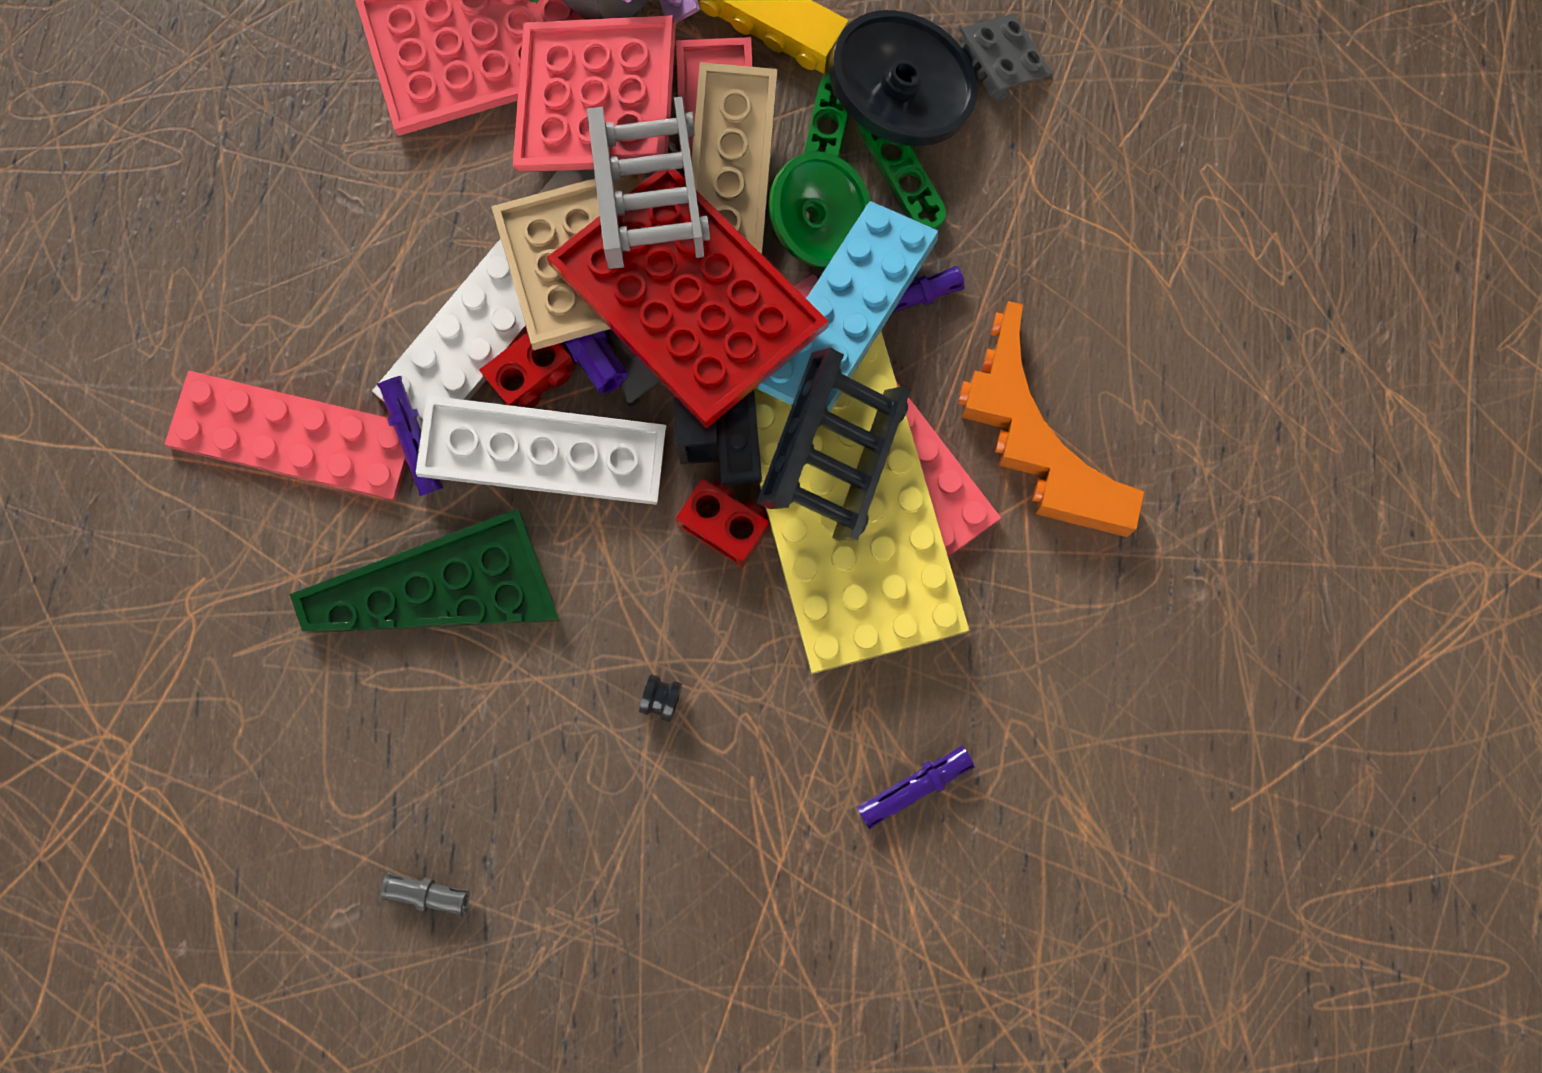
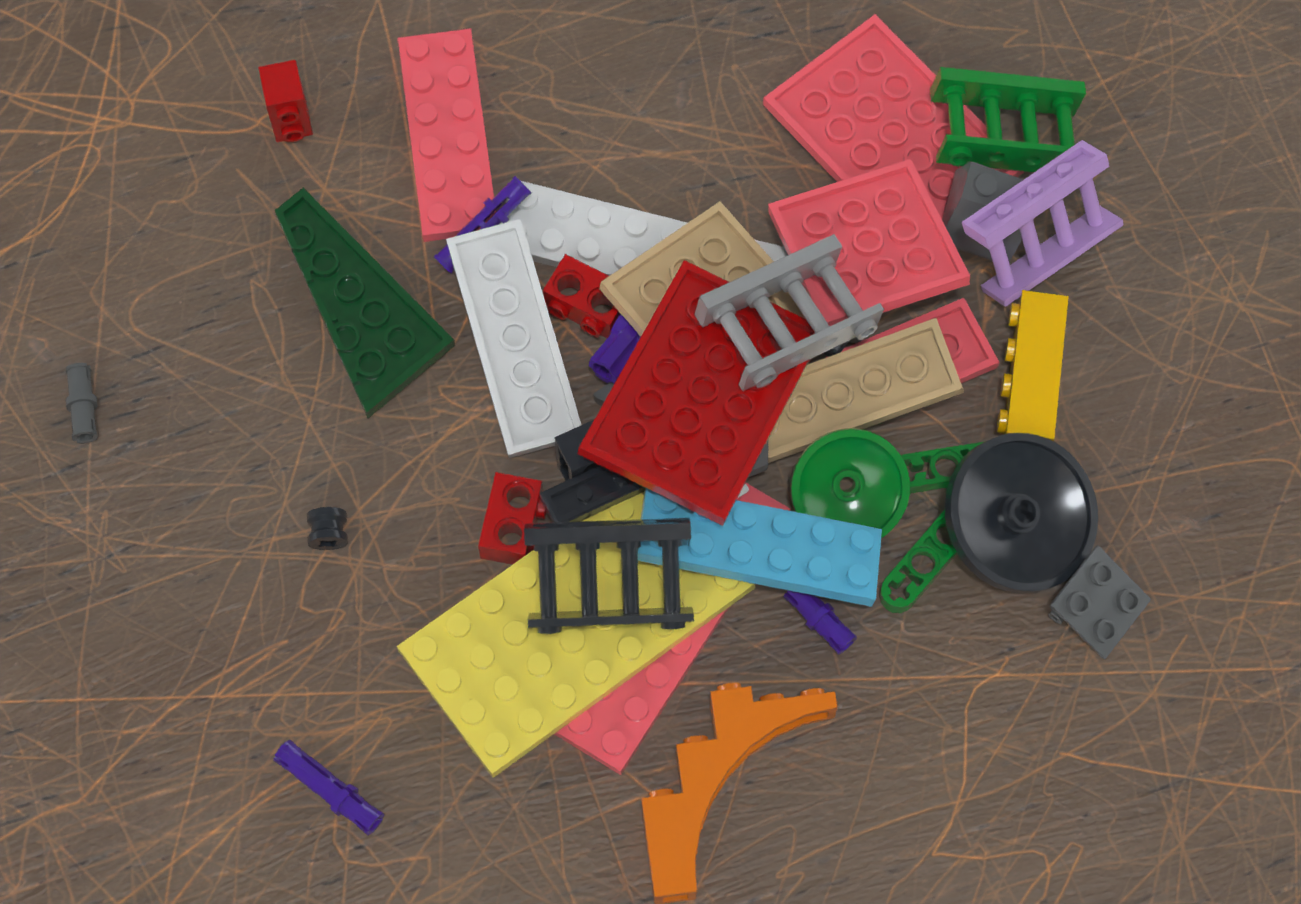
camera: 70 degrees right, 10 degrees down
(189, 575) = (285, 101): none -> red brick

